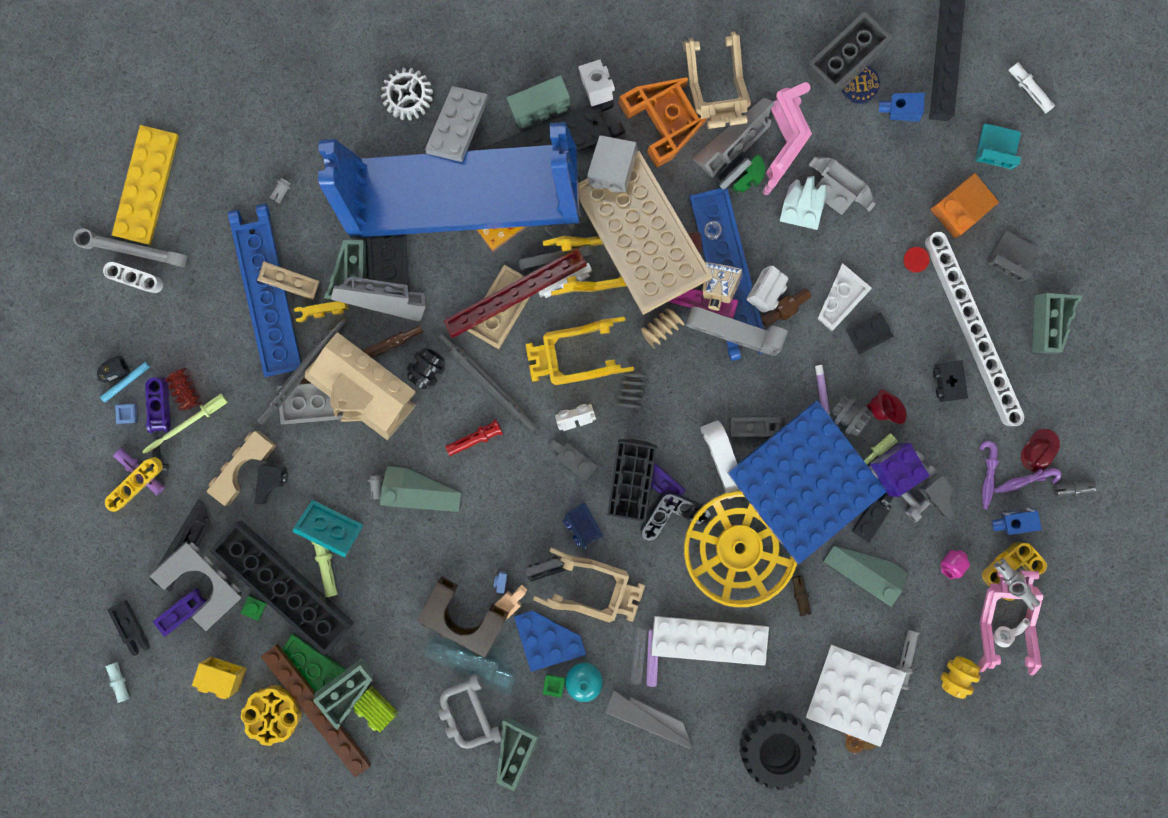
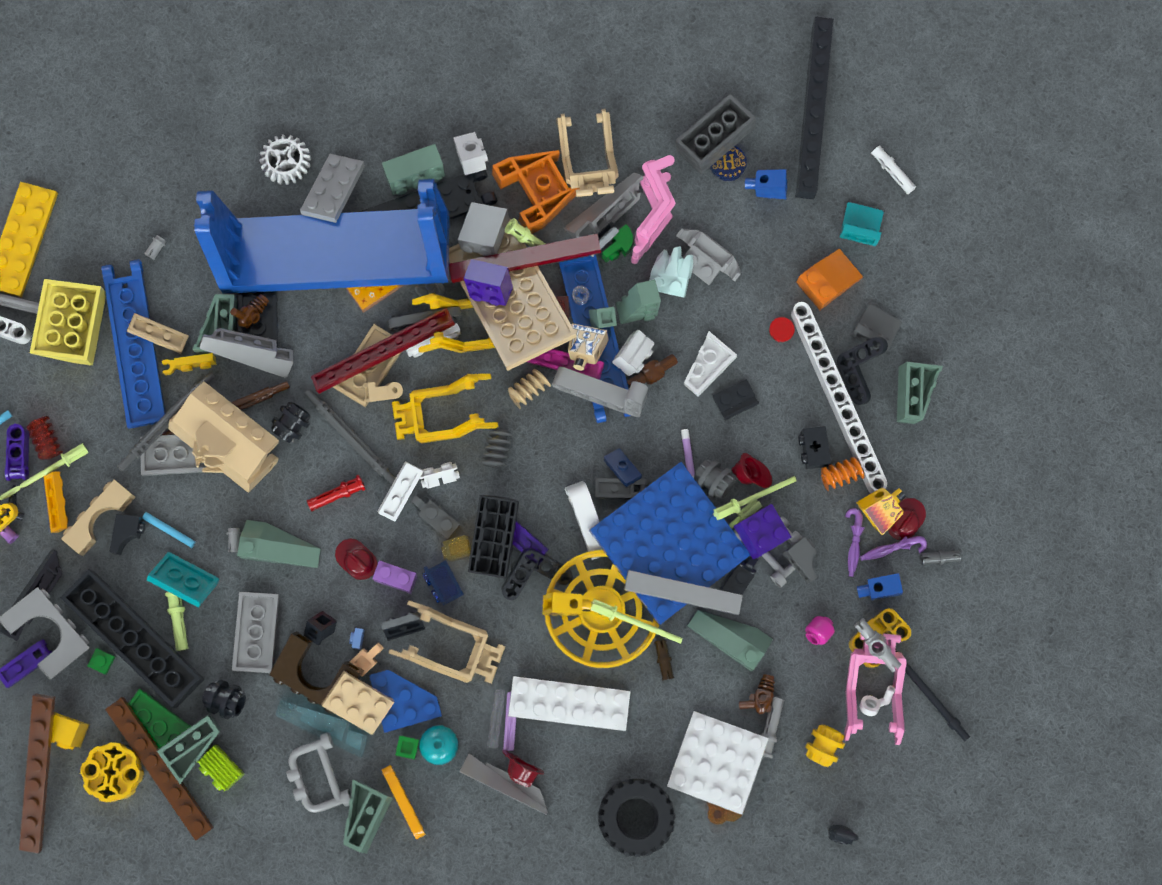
camera: 10 degrees left, 10 degrees down
(198, 271) = (68, 321): none -> light yellow slope
(199, 453) = (55, 502): none -> light orange plate
(199, 720) = (37, 773): none -> reddish brown plate
(311, 477) = (168, 529): none -> medium azure bar
(372, 643) = (222, 699): none -> black piece
(379, 259) = (250, 313): none -> reddish brown piece
(401, 577) = (255, 632): none -> light grey plate
(464, 572) = (319, 627): none -> black brick
(496, 502) = (356, 559): none -> dark red piece
(504, 646) = (357, 702): none -> tan plate
(520, 335) = (389, 391): none -> tan leg
(535, 521) = (395, 577): none -> medium lavender brick
(537, 435) = (400, 491): none -> white plate
(552, 737) = (403, 802): none -> light orange beam
(595, 491) = (456, 548): none -> clear yellow brick
(620, 223) = (488, 282): none -> dark purple brick
(654, 170) = (522, 234): none -> yellowish green pin
(656, 194) = (534, 255): none -> tile
(665, 706) = (520, 771): none -> dark red piece
(705, 550) = (565, 604): none -> yellow torso
(736, 254) = (603, 317): none -> sand green brick
(751, 554) = (611, 612): none -> yellowish green piece
(757, 406) = (622, 467): none -> dark blue plate
(775, 237) = (640, 304): none -> sand green wedge
(821, 533) = (683, 592): none -> light grey tile
(872, 445) = (734, 505): none -> yellowish green piece
(898, 632) = (763, 696): none -> reddish brown piece
(976, 760) = (842, 834): none -> black piece
(977, 406) = (841, 472): none -> orange piece
(989, 298) = (853, 367): none -> black beam
(1019, 443) = (882, 508): none -> torso
(1084, 650) = (953, 722): none -> black bar

